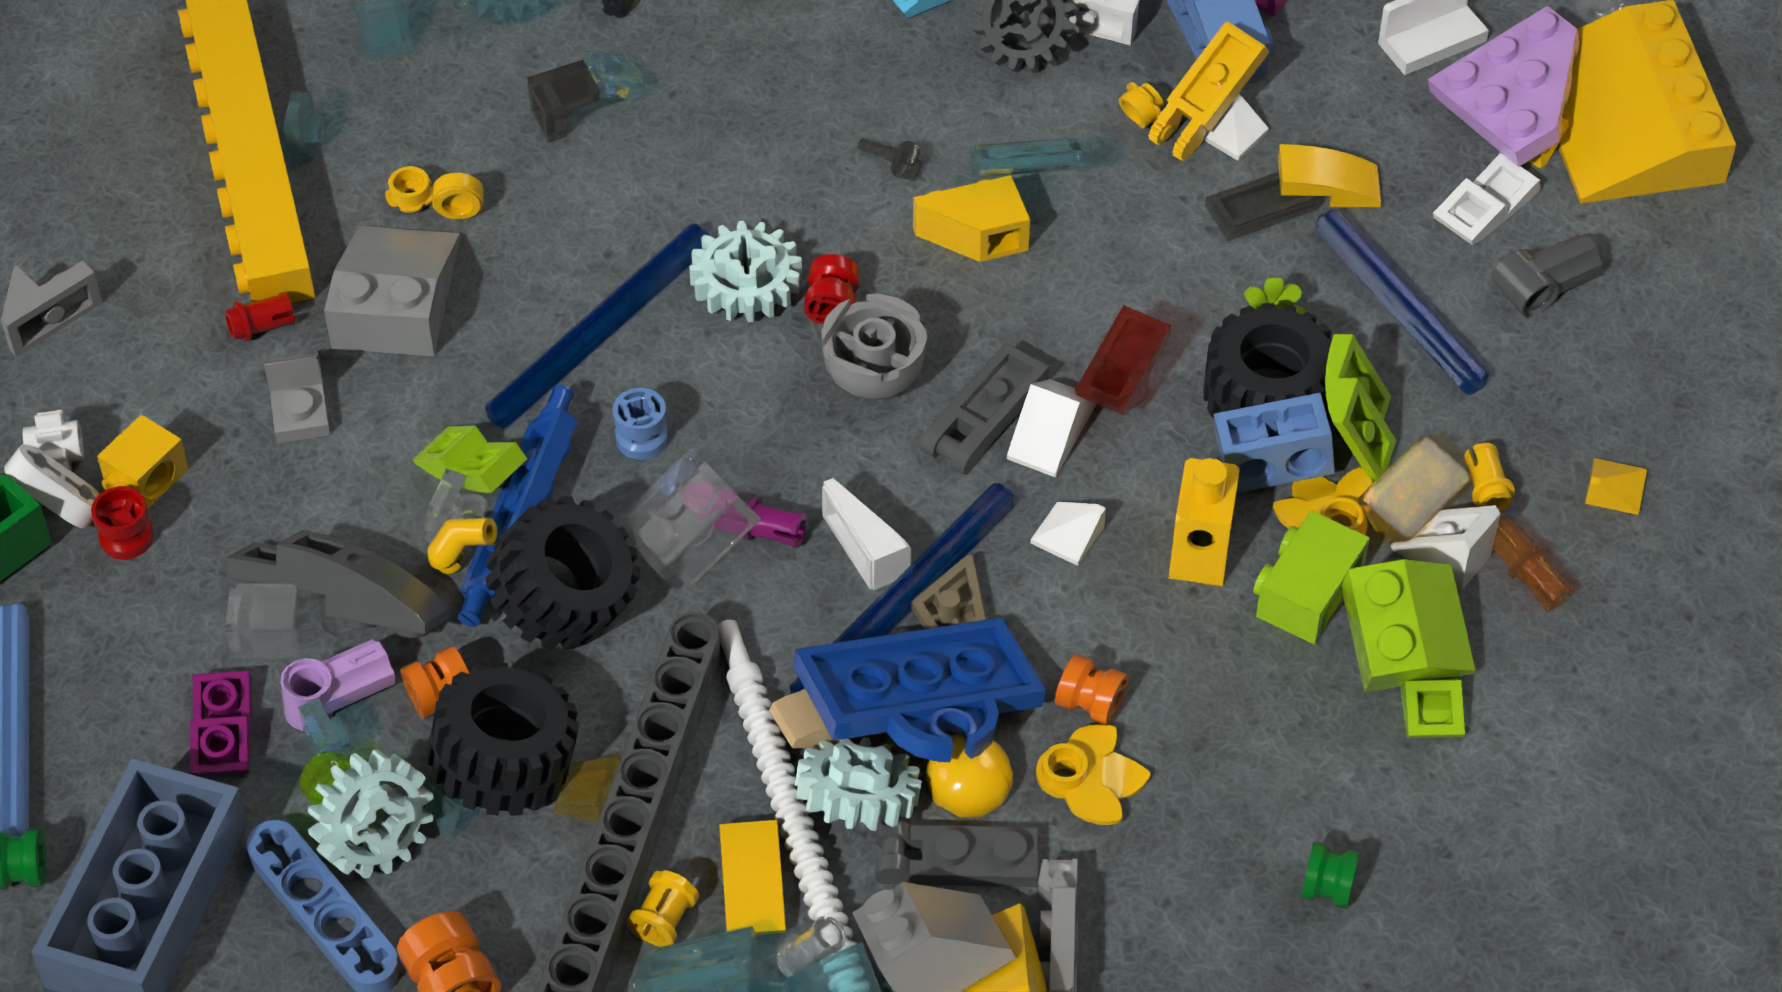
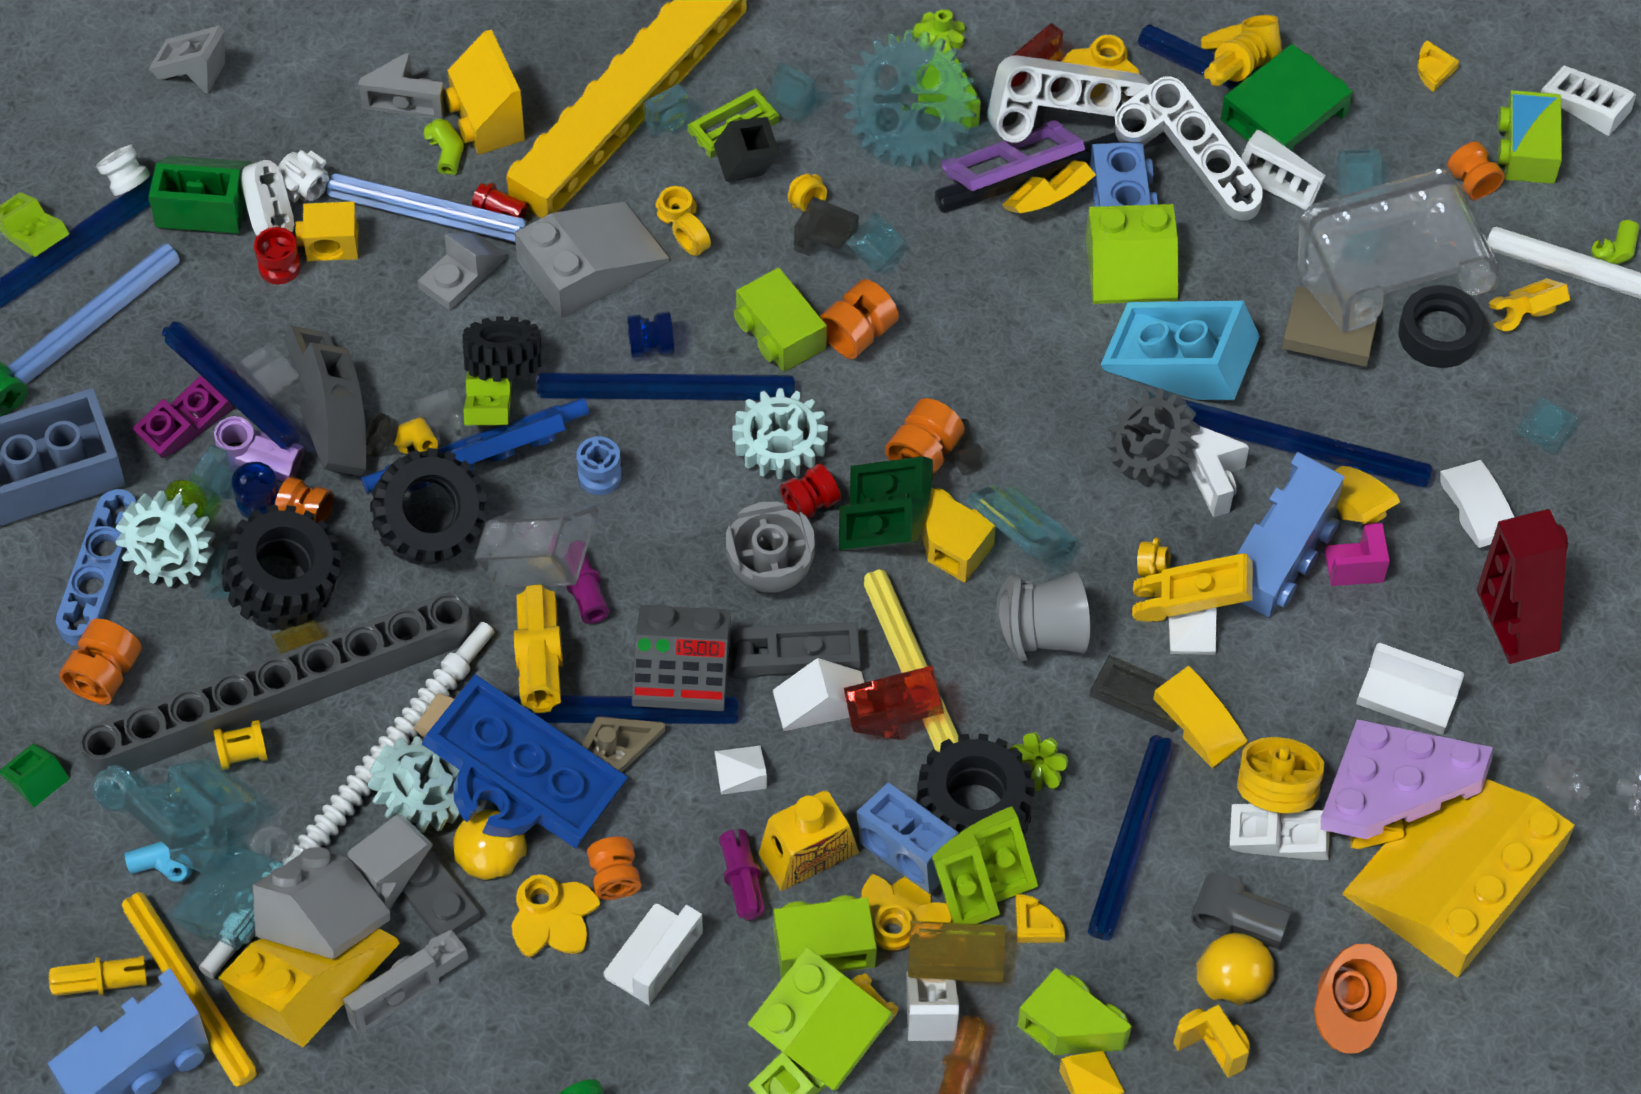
camera: 50 degrees right, 5 degrees up
(136, 236) = (485, 96): none -> yellow slope
(146, 311) = (452, 146): none -> lime arm
(198, 374) = (424, 207): none -> medium blue axle
(237, 652) = (231, 385): none -> clear blue axle
(358, 123) = (707, 140): none -> lime tile
(381, 711) = (254, 487): none -> clear blue wheel
(416, 93) = (746, 148): none -> pearl dark grey brick
(426, 564) = (380, 433): none -> clear smoke tile
(436, 410) = (502, 349): none -> black tyre
(503, 89) = (804, 189): none -> yellow plate
(539, 291) = (647, 334): none -> clear blue wheel
(624, 192) = (780, 320): none -> lime brick
(685, 136) = (860, 316): none -> orange wheel
(752, 876) = (304, 776): yellow slope -> none
(800, 592) = (538, 649): none -> yellow piece
(863, 172) = (927, 431): none -> orange wheel
(868, 541) = (616, 662): white slope -> none
(907, 238) = (886, 503): none -> dark green slope
(925, 486) = (681, 657): none -> dark grey slope
(928, 845) = (390, 857): none -> light grey slope
(1068, 334) = (904, 646): none -> light yellow axle
(1137, 203) = (1044, 615): none -> light grey hat
(1185, 597) = (742, 874): none -> magenta axle
(1206, 717) = (654, 951): none -> white panel
(1424, 419) = (1036, 922): none -> yellow tile
(1443, 156) = (1280, 775): none -> yellow wheel
(1488, 477) = (1006, 1002): yellow pin -> none
(1550, 453) = (1070, 1019): none -> lime slope
(1594, 315) = (1235, 969): none -> yellow hair
(1658, 365) = (1225, 1041): none -> yellow bracket
(1698, 250) = (1355, 997): none -> orange piece

